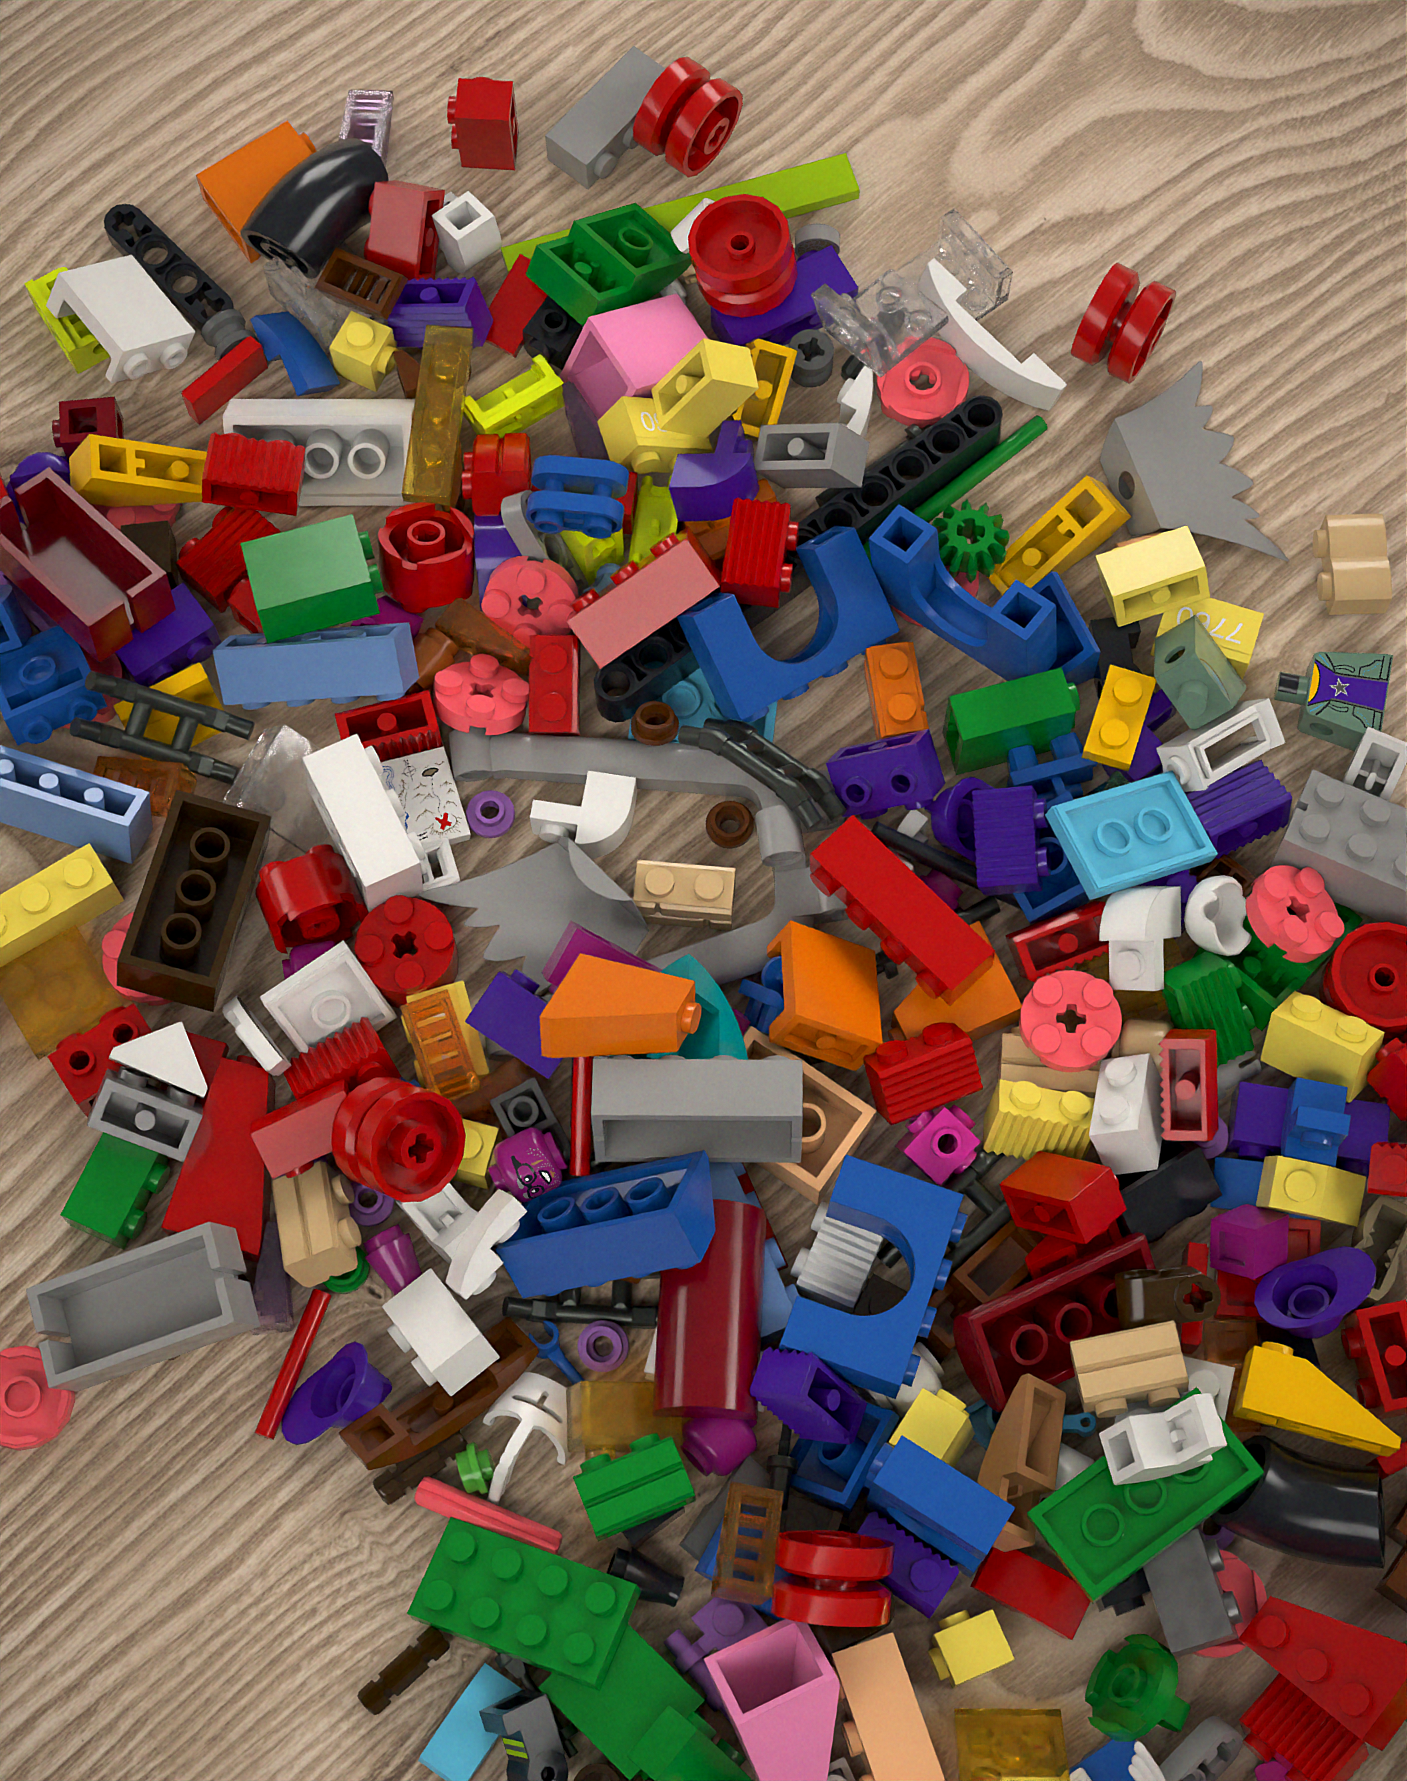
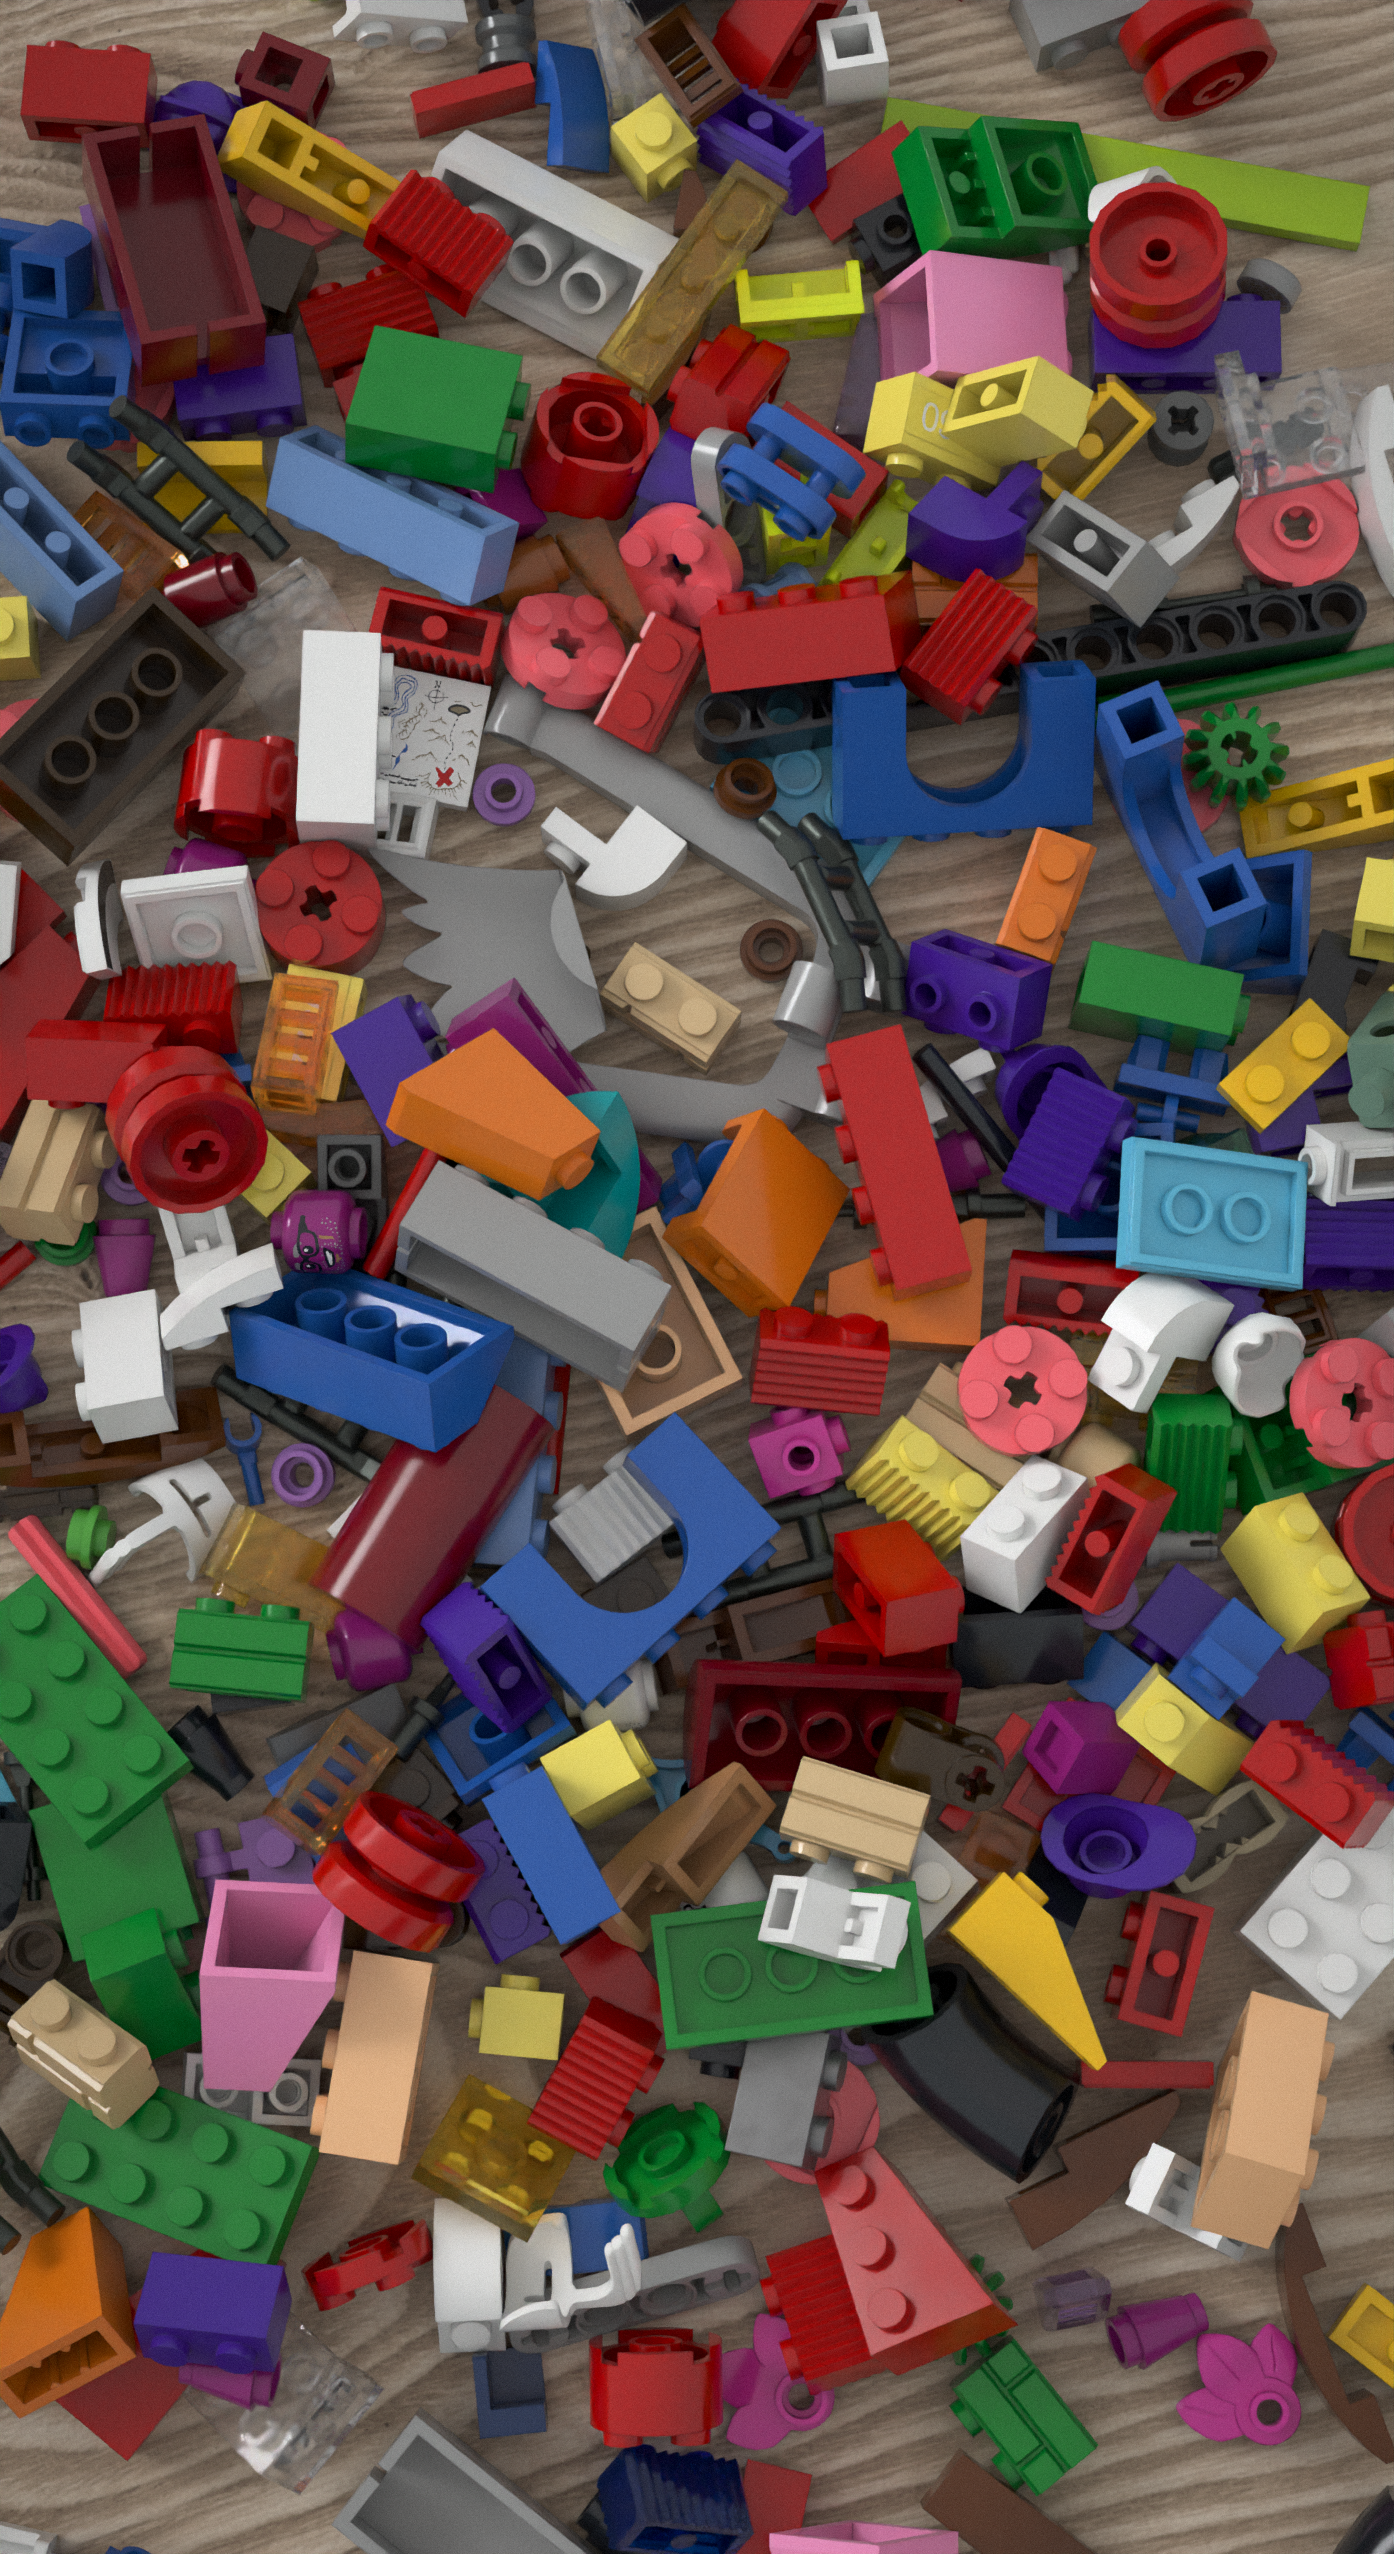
camera: 25 degrees right, 10 degrees up
(216, 774) = (212, 588): none -> dark red brick
(1049, 1659) = (596, 2078): none -> red brick

